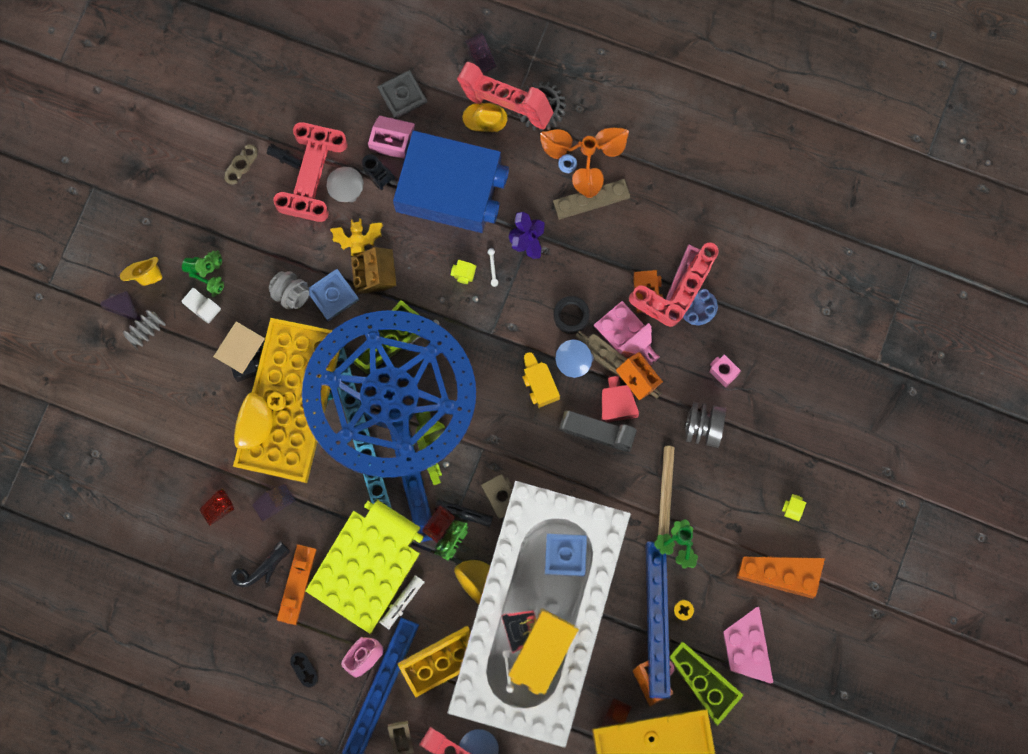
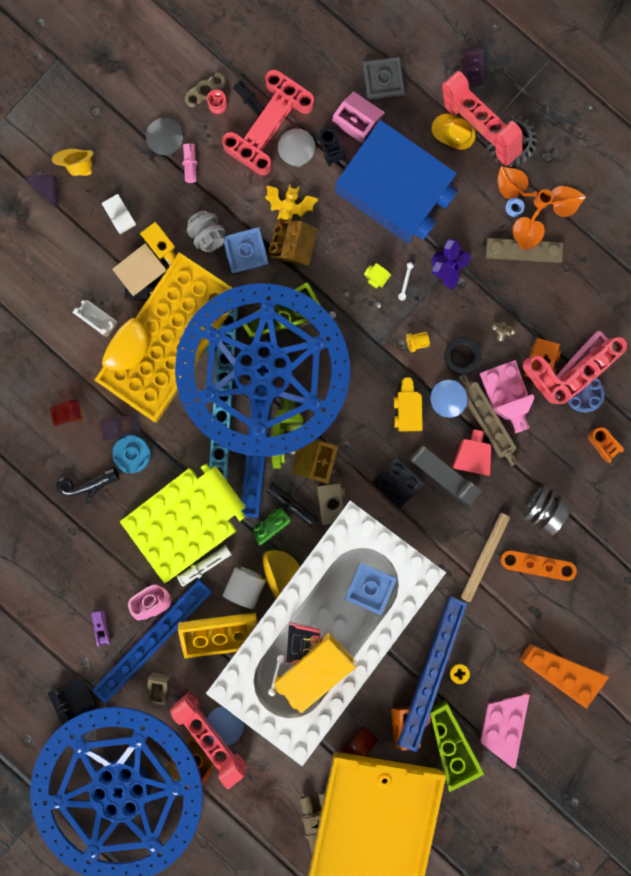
camera: 15 degrees right, 10 degrees up
(143, 328) = (57, 217): light grey piece -> none
(203, 267) = (133, 177): bright green plant -> none
(213, 409) = (95, 317): none -> white hinge
(218, 219) = (164, 136): none -> dark grey dish
(243, 311) = (154, 236): none -> yellow torso
(250, 234) = (189, 163): none -> bright pink axle
(253, 167) = (214, 98): none -> coral wheel
(282, 401) = (160, 338): yellow bush -> none
(293, 523) = (131, 454): none -> dark azure tile
(296, 585) = (114, 512): orange hinge -> none
(300, 672) = (88, 594): black beam -> none
(322, 697) = (100, 624): none -> medium lavender bar
(438, 524) = (262, 508): clear red slope -> none
(447, 605) = (244, 587): none -> light grey piece
(470, 462) = (315, 461): none -> pearl gold slope
(524, 317) = (417, 341): none -> yellow bush
(557, 454) = (398, 482): none -> black hinge
(600, 277) = (502, 330): none -> dark tan plant
(639, 376) = (504, 441): orange brick -> none
(682, 534) = (485, 607): bright green plant -> none
(719, 482) = (538, 565): none -> orange plate
(724, 379) = (592, 467): bright pink brick -> none
(737, 345) = (607, 446): none -> orange piece
(794, 508) = (598, 617): neon yellow plate -> none

